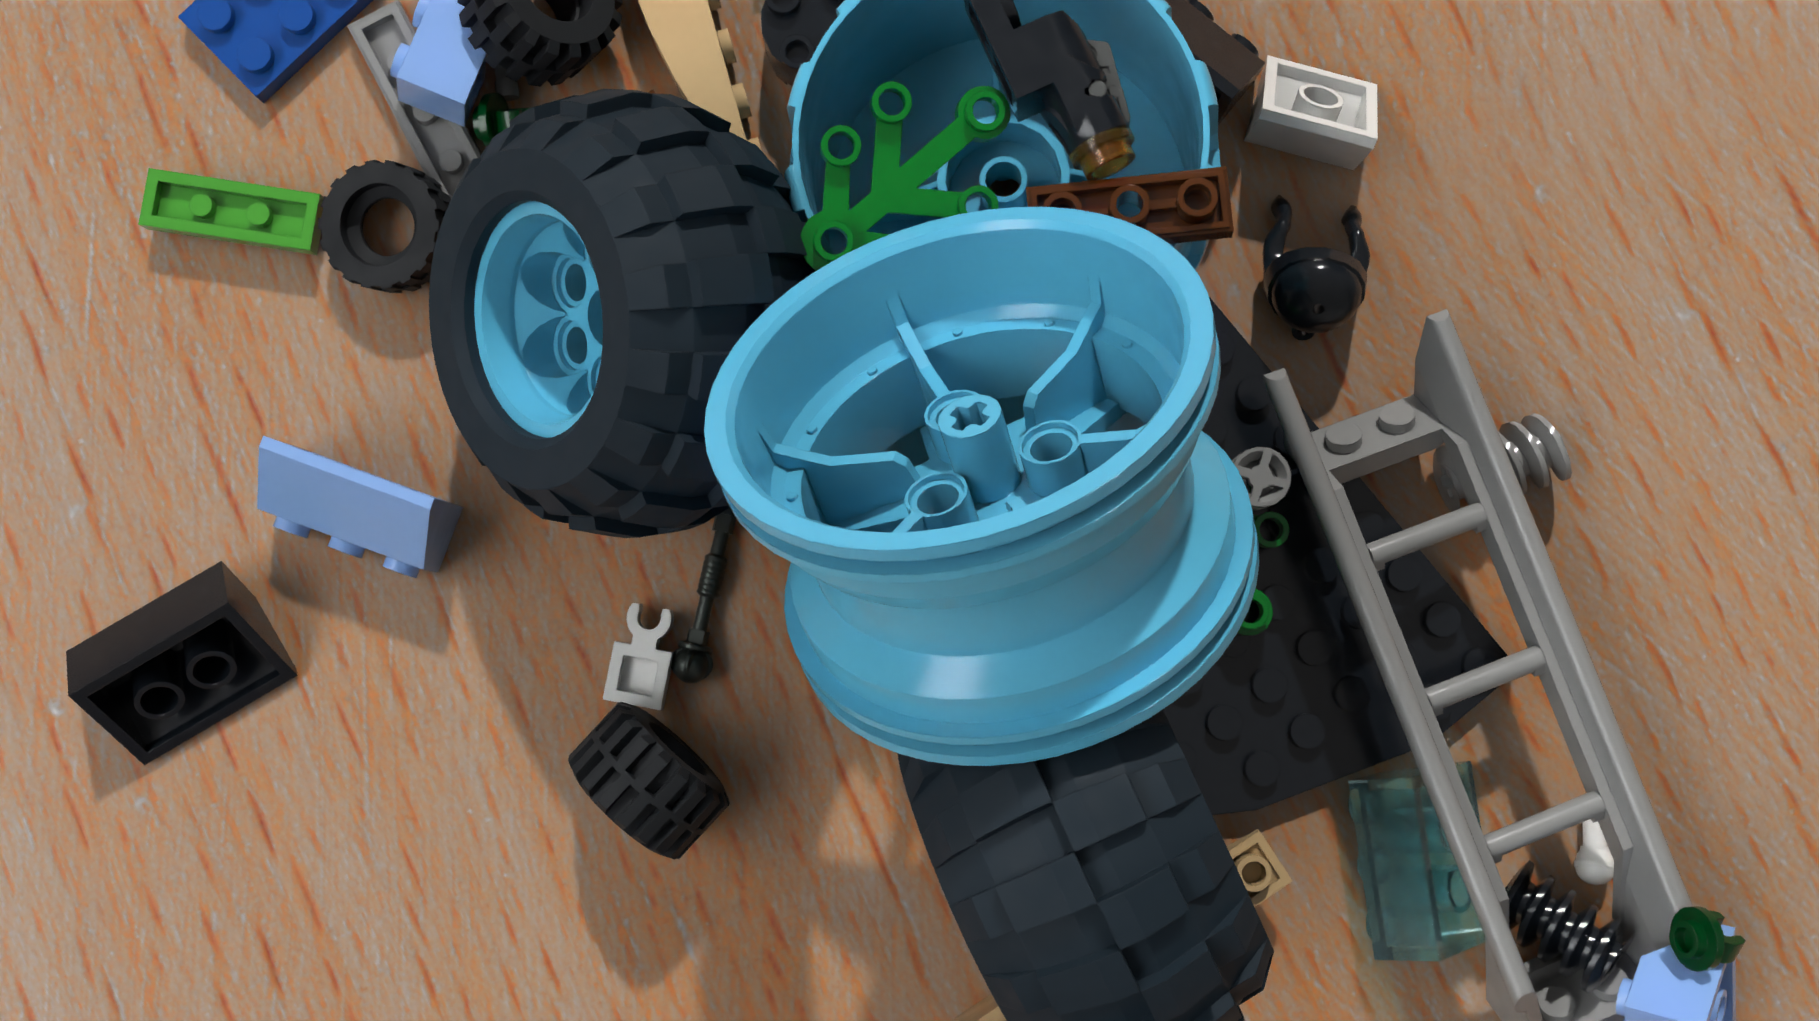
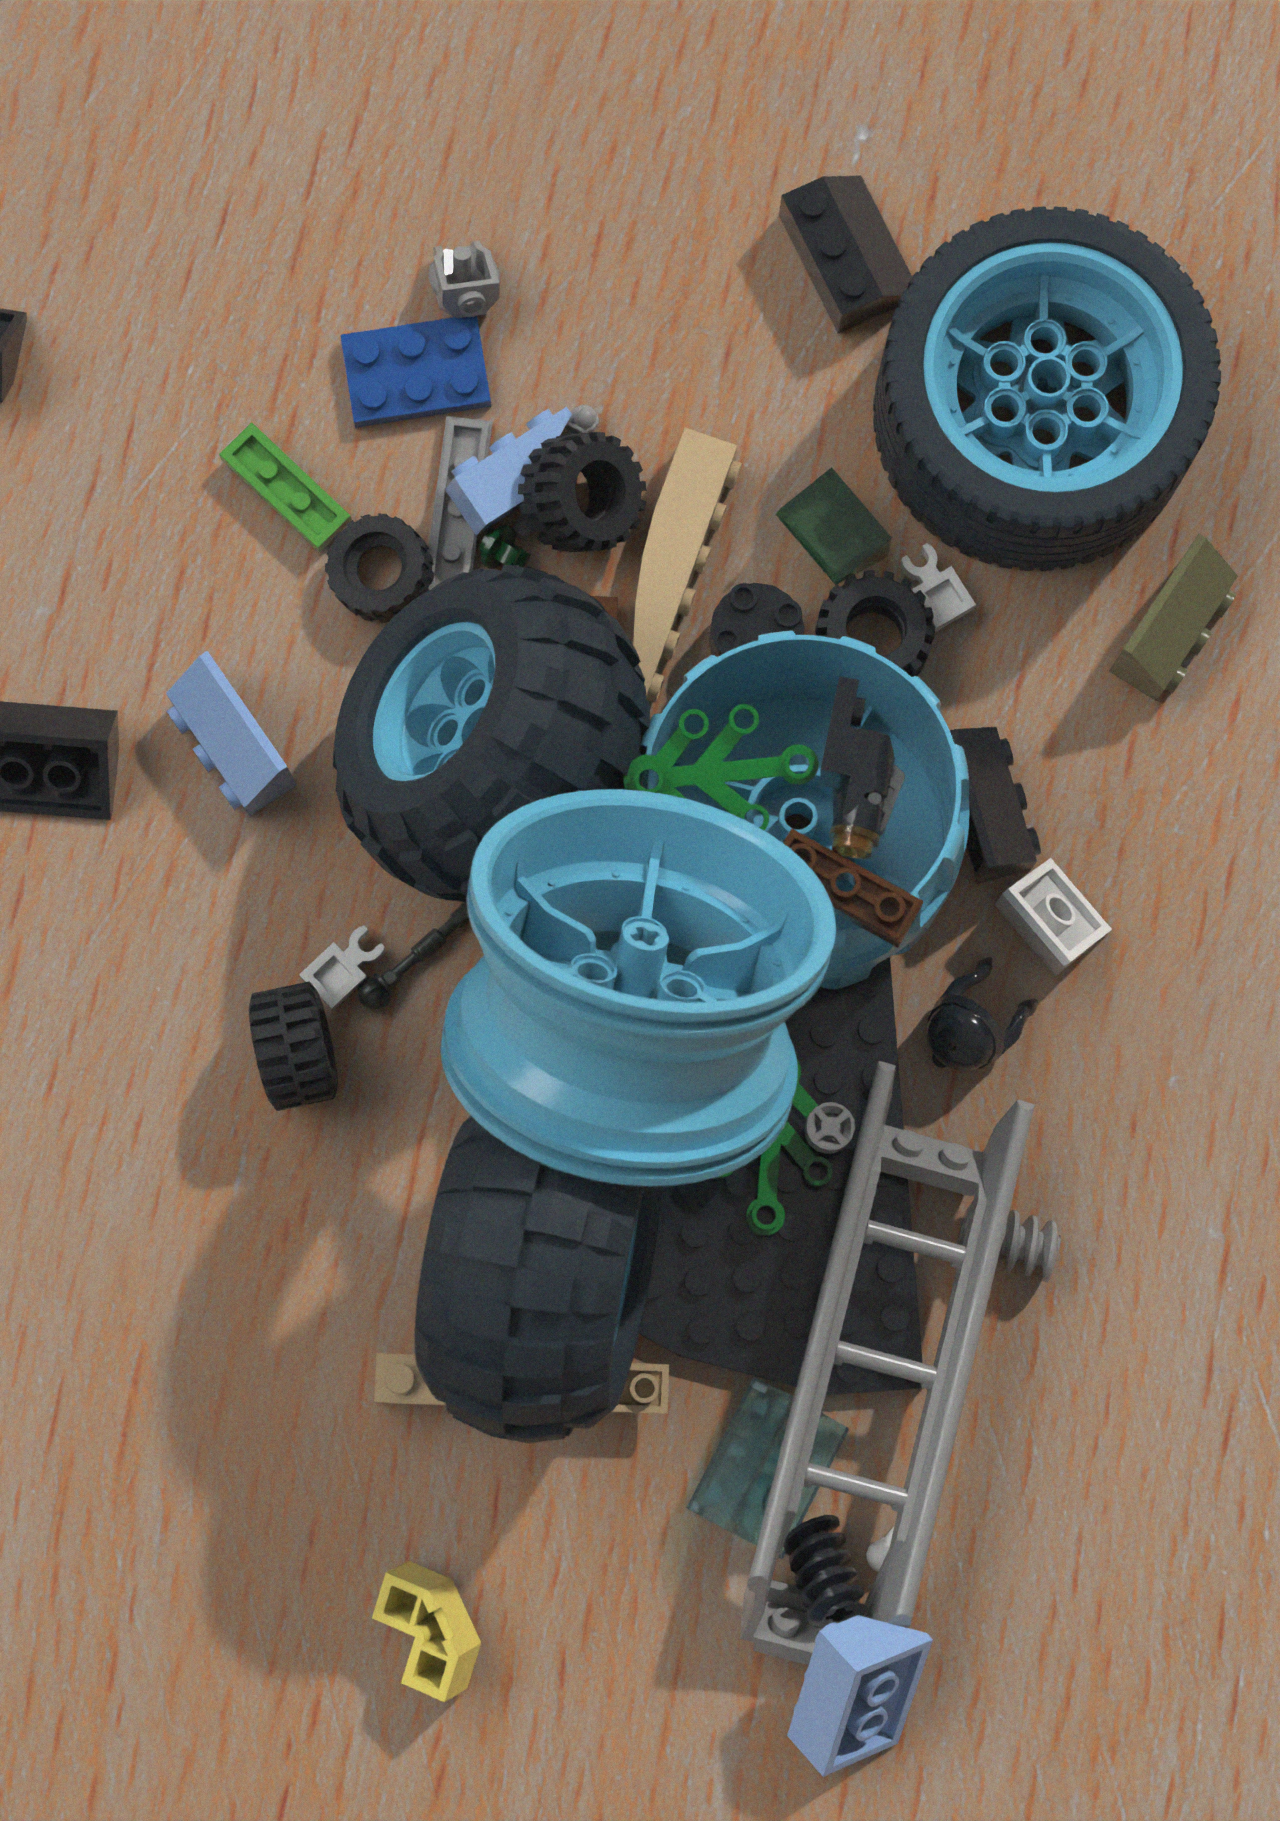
camera: 35 degrees right, 5 degrees down
(1700, 940) = (901, 1623): dark green plate -> none

